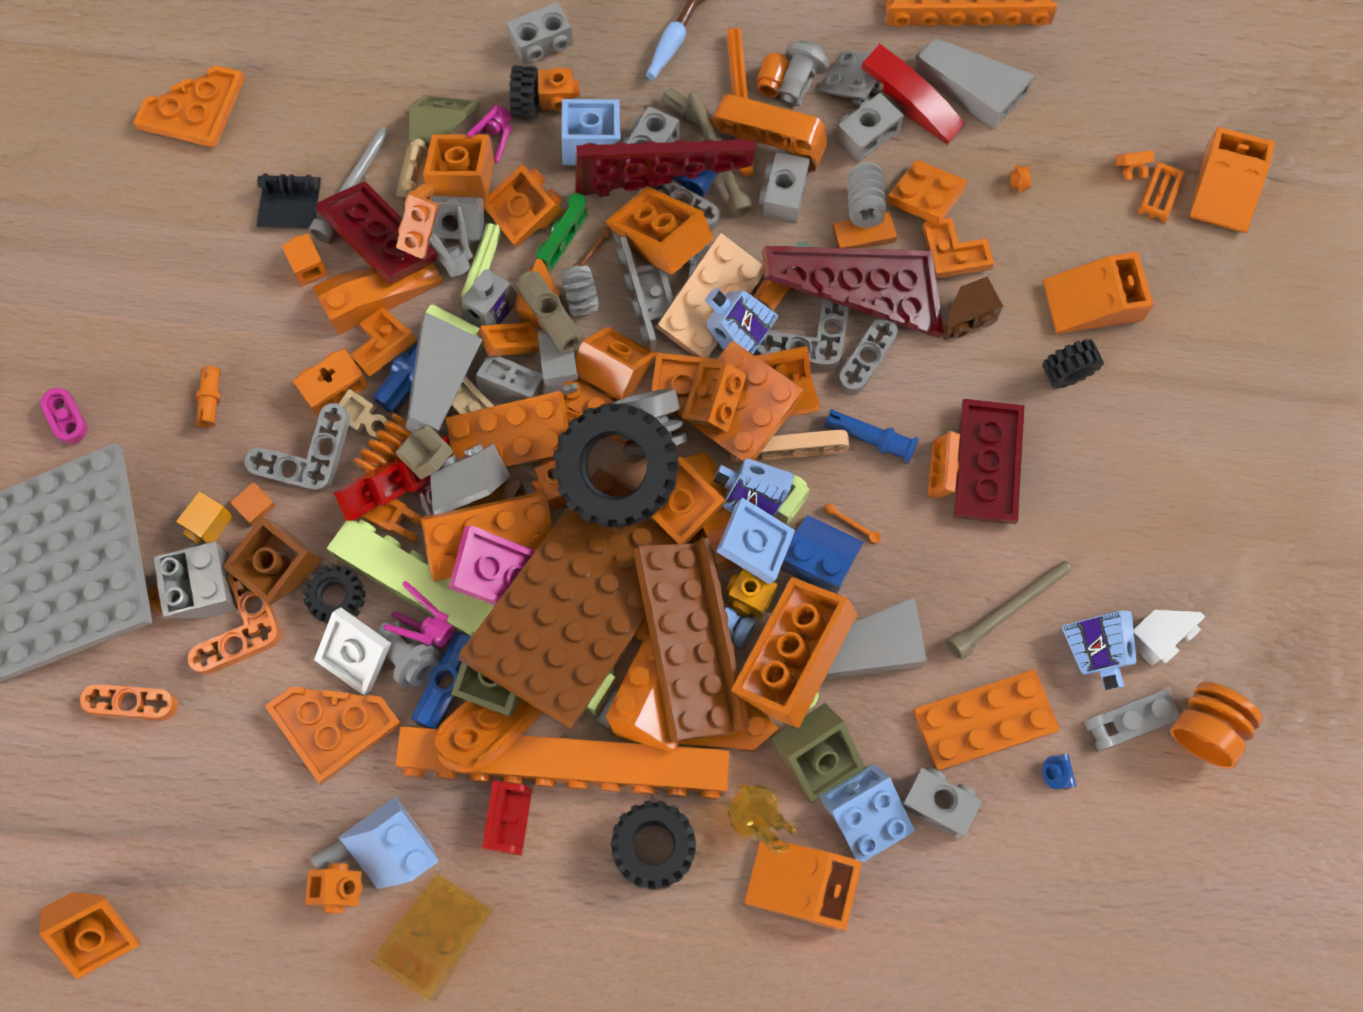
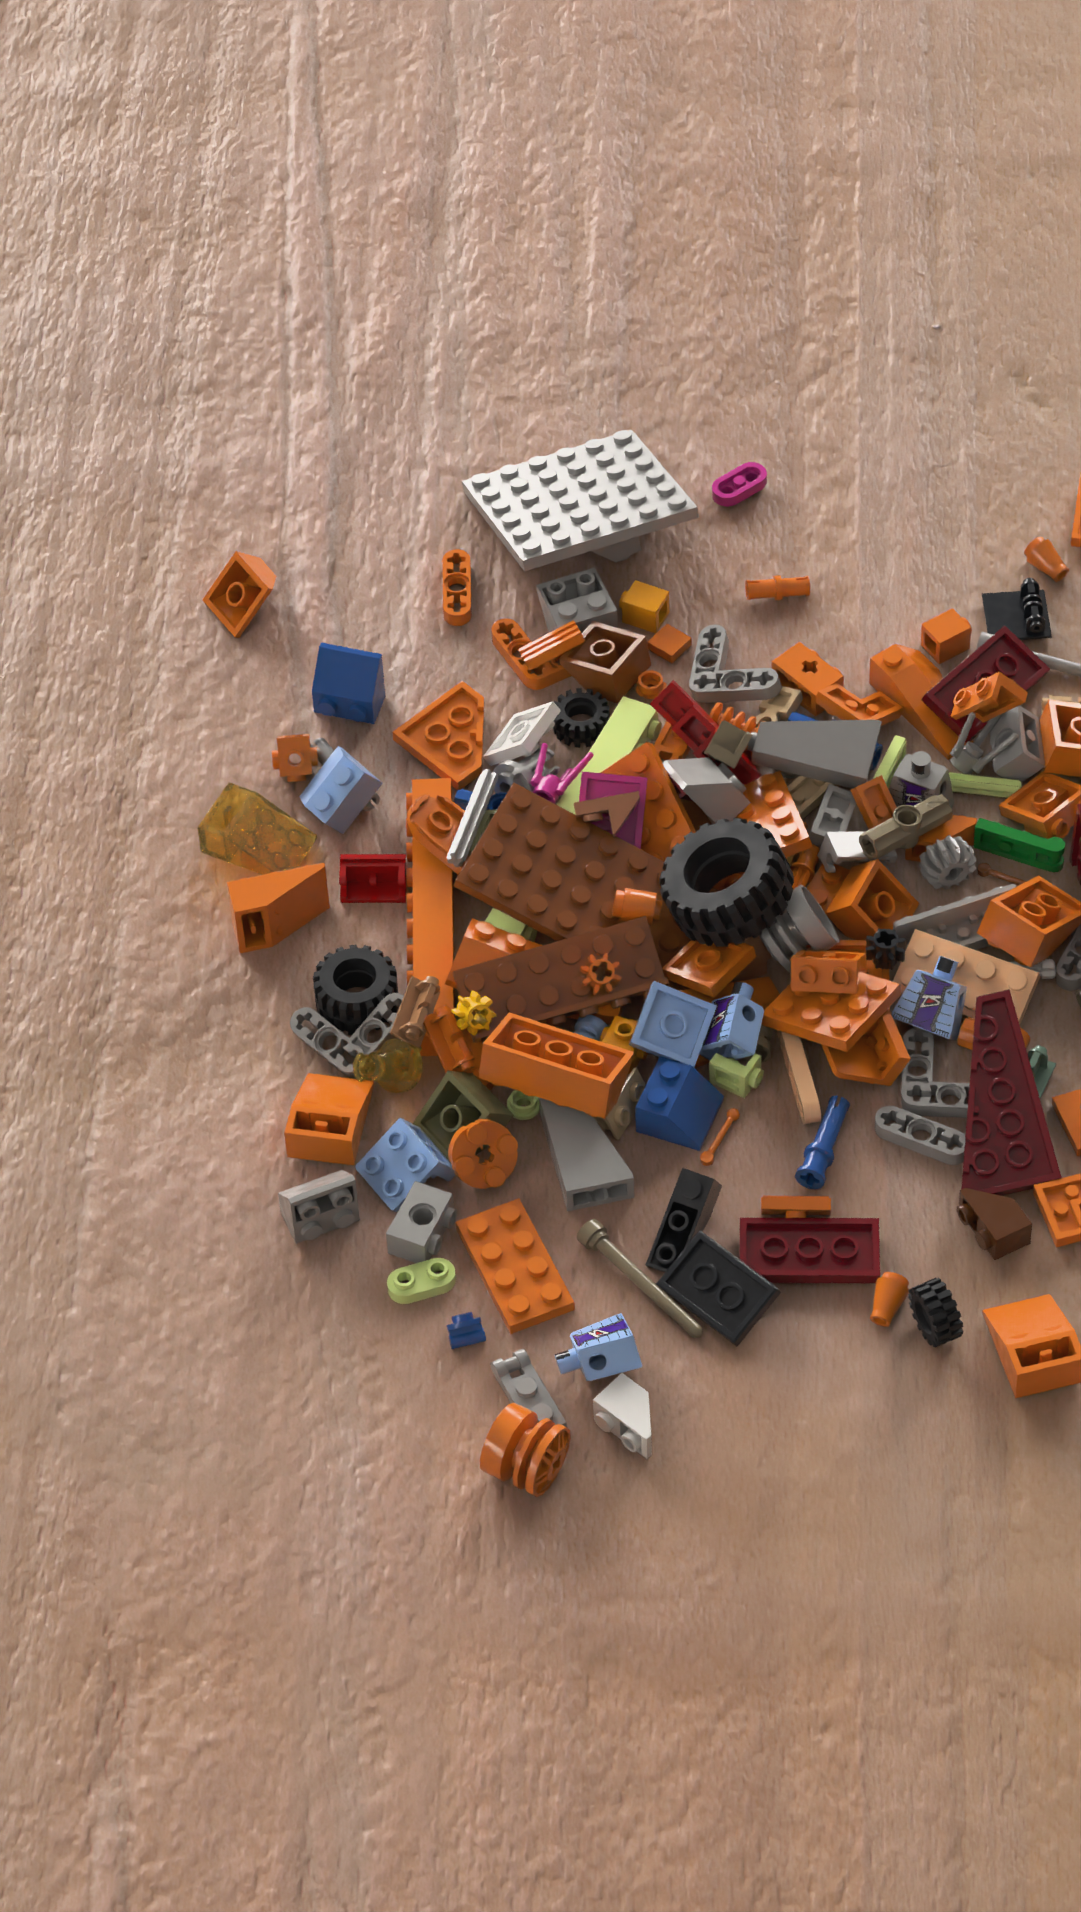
camera: 85 degrees right, 20 degrees down
(229, 167) = (1045, 558): none -> orange cone
(242, 611) = (551, 645): none -> orange tile
(250, 824) = (348, 683): none -> blue slope
(302, 519) = (650, 684): none -> orange plate
(467, 706) = (472, 818): none -> light grey axle
(501, 559) = (618, 807): none -> nougat slope
(543, 932) = (276, 905): none -> orange slope
(615, 556) = (636, 904): none -> orange brick
(675, 359) = (885, 948): none -> black gear
(701, 596) = (609, 970): none -> orange gear
(705, 780) = (416, 1004): none -> medium nougat hinge
(721, 851) = (356, 1043): none -> light grey beam
(732, 723) = (480, 1006): none -> yellow gear
(745, 754) = (449, 1041): none -> orange hinge
(874, 735) = (500, 1163): none -> orange plate
(918, 901) = (320, 1206): none -> light grey slope
(952, 561) = (684, 1217): none -> black slope
(998, 808) = (422, 1280): none -> yellowish green plate
(1029, 540) = (718, 1288): none -> black tile
(1043, 403) = (888, 1297): none -> orange cone

